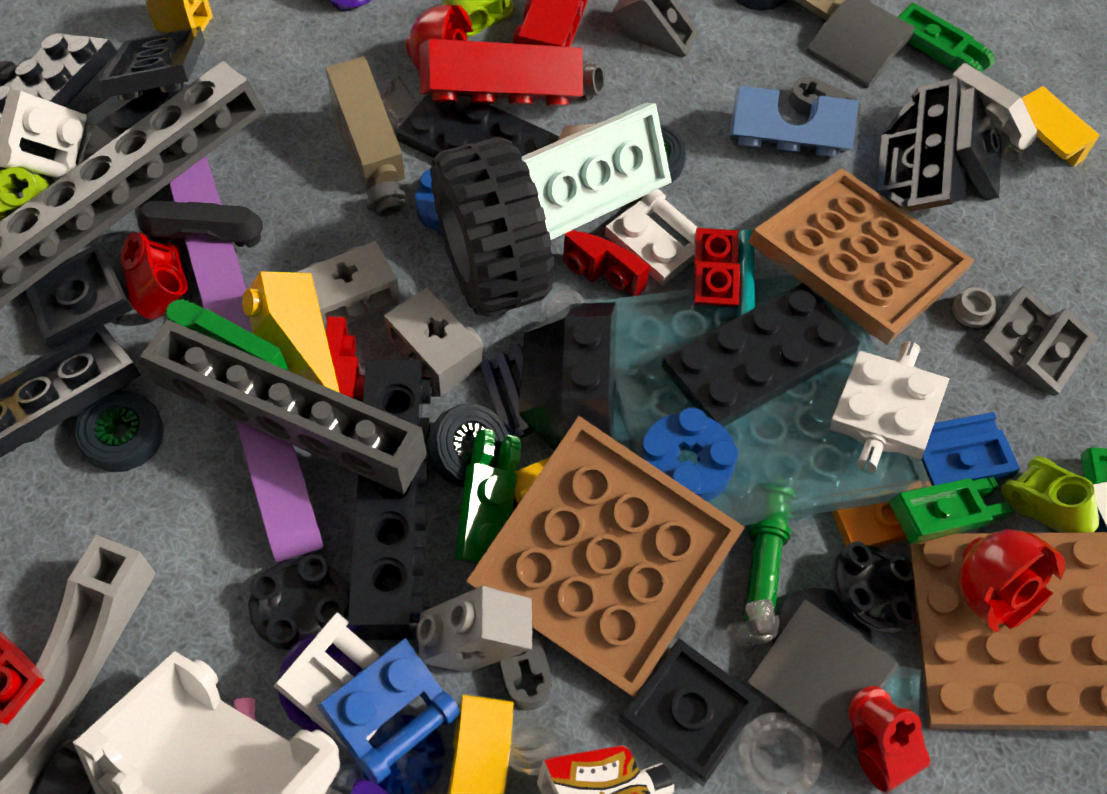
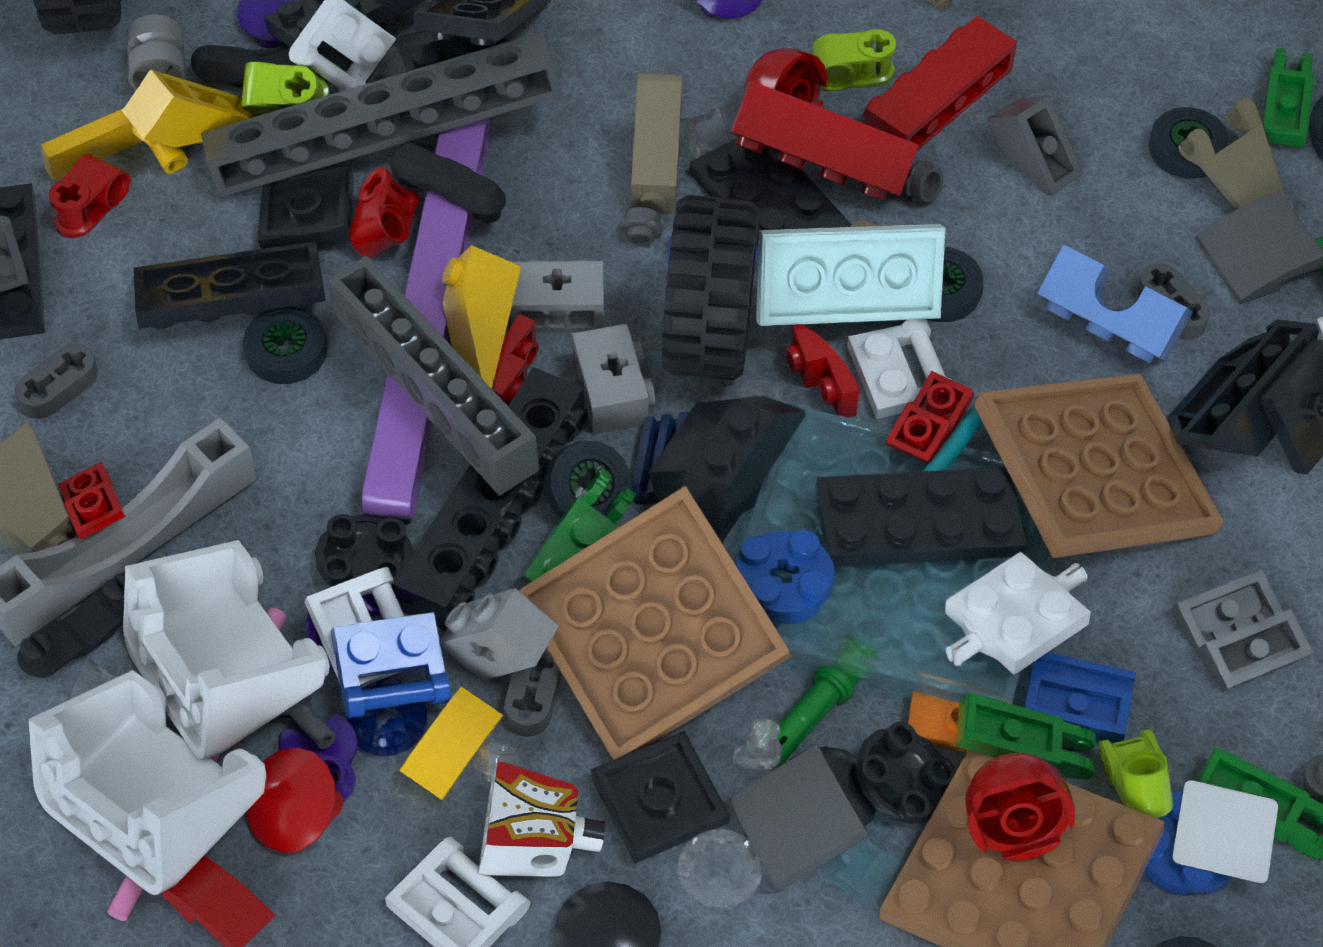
camera: 30 degrees right, 5 degrees down
(224, 331) = (414, 289): green hinge -> none
(887, 739) = (822, 898): red piece -> none
(974, 307) = (1194, 570): light grey plate -> none

